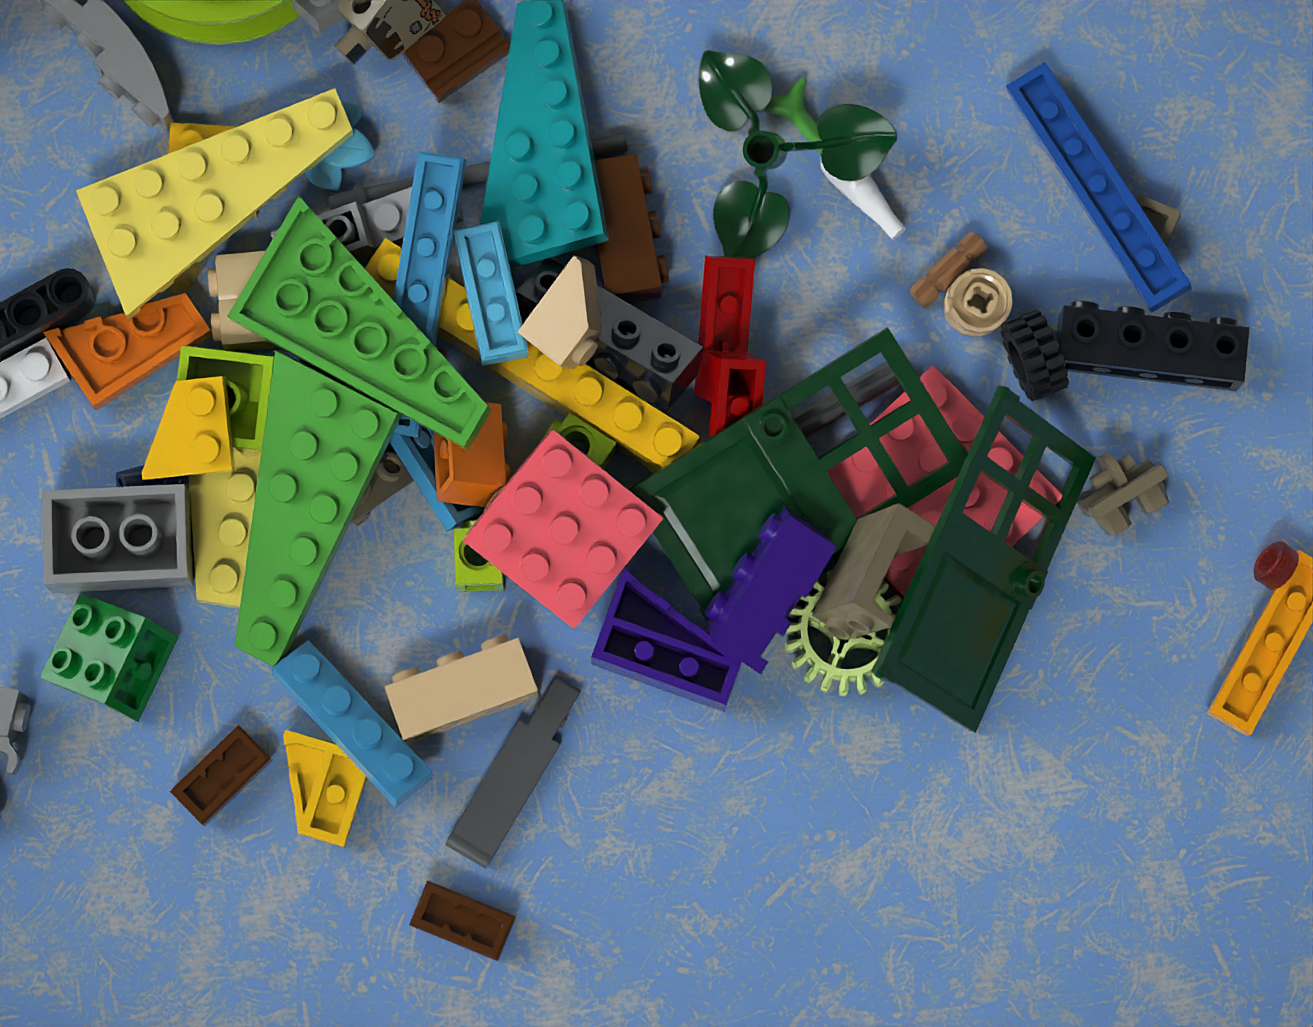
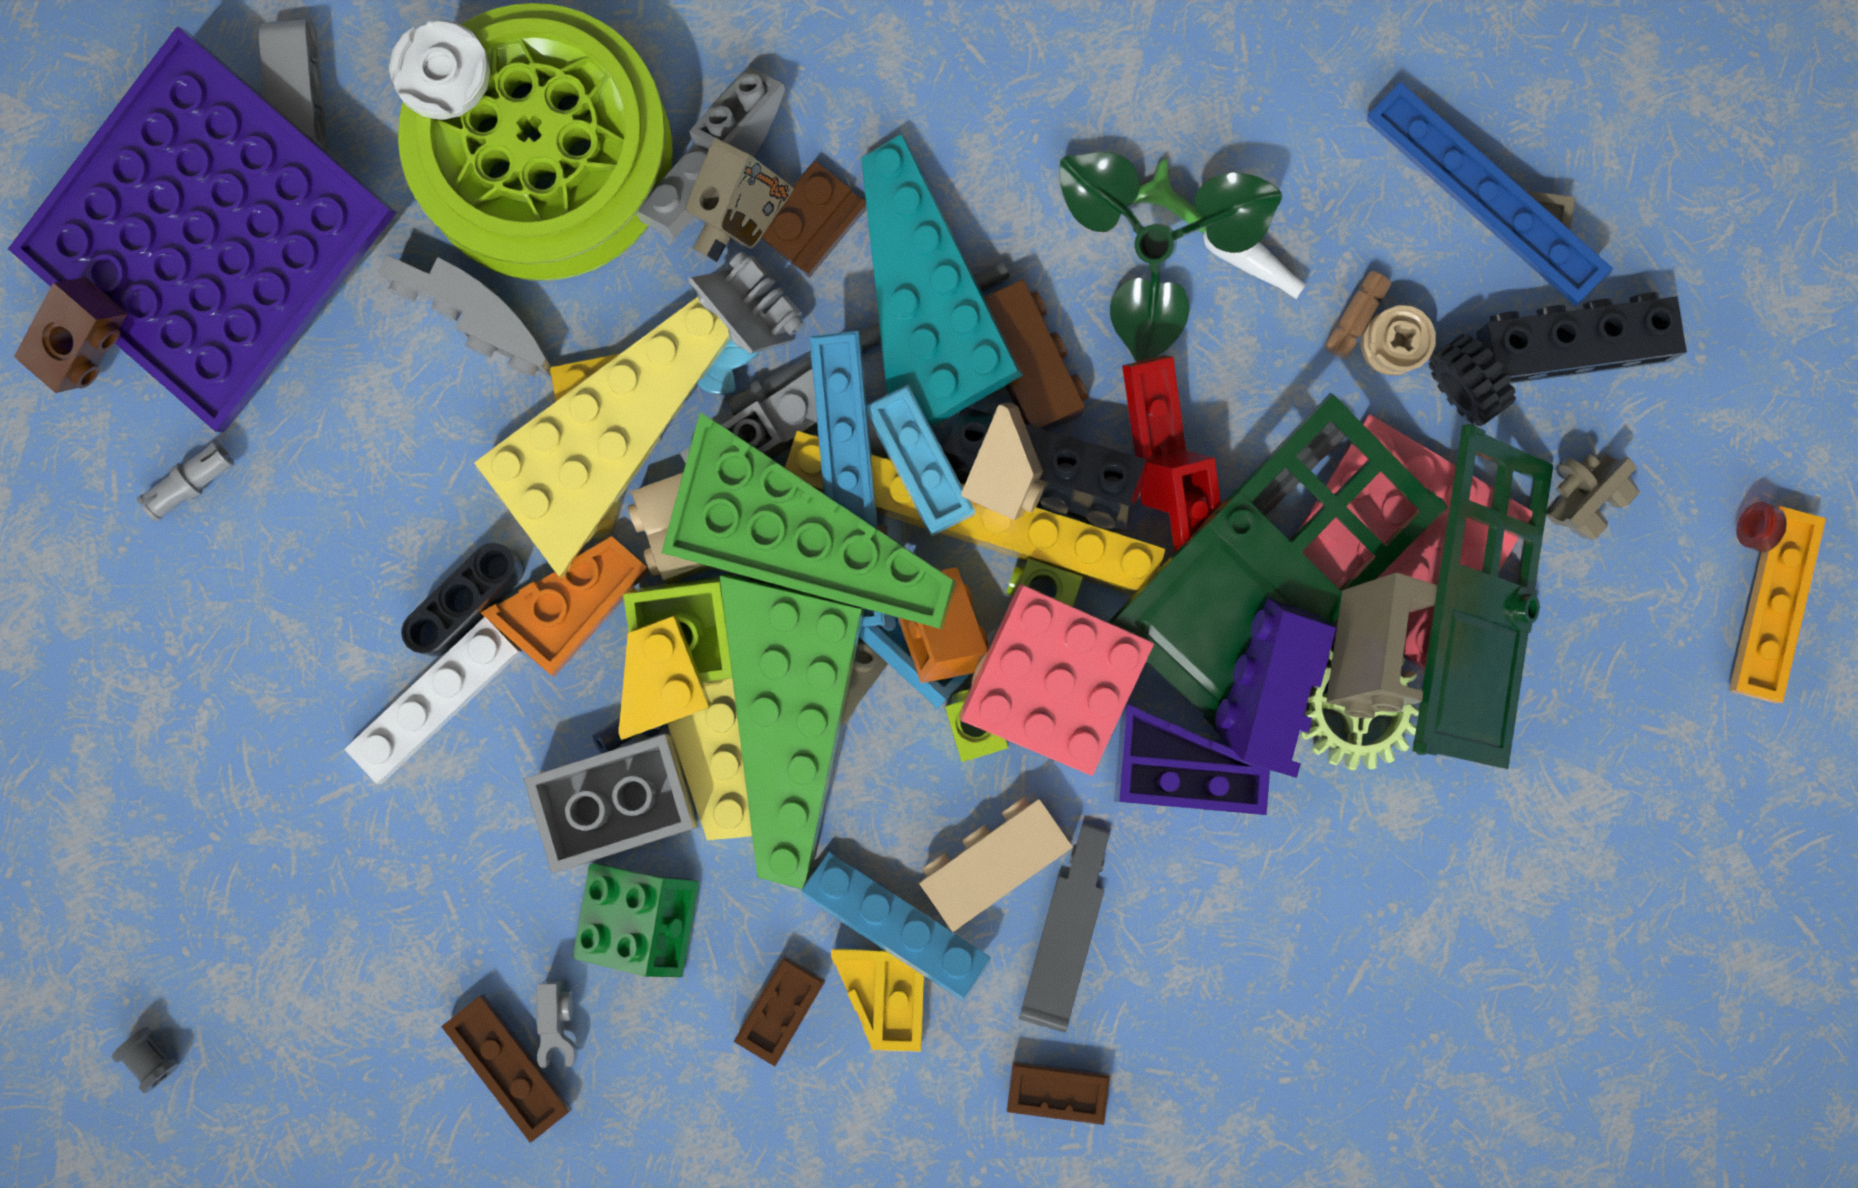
camera: 10 degrees left, 5 degrees up
(368, 113) = (737, 301): none -> light grey hinge

